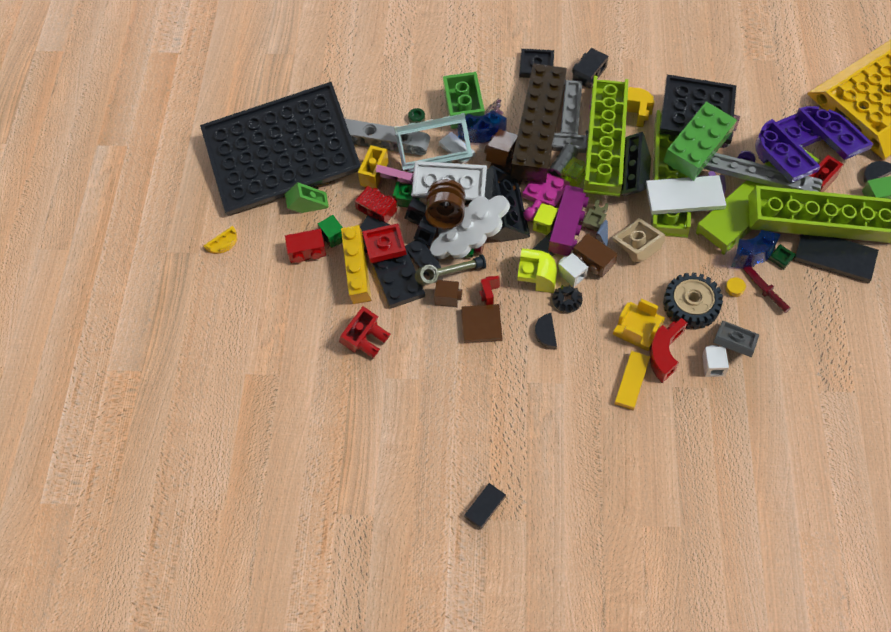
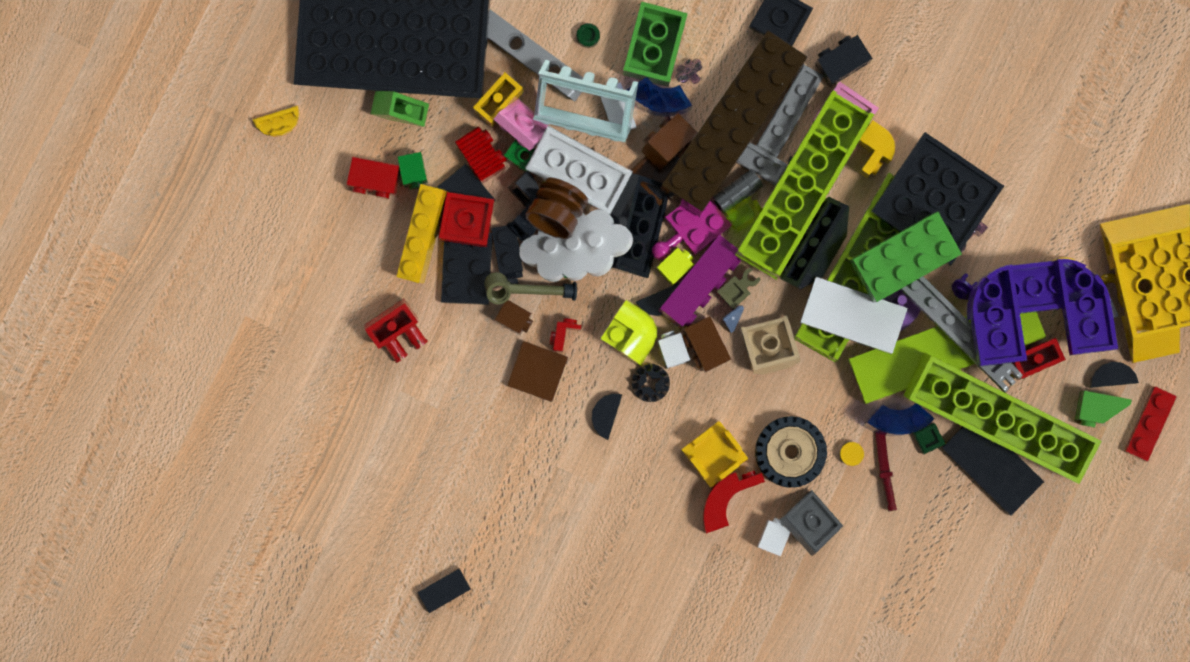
camera: 20 degrees right, 25 degrees up
(632, 380) = (672, 516): yellow tile -> none

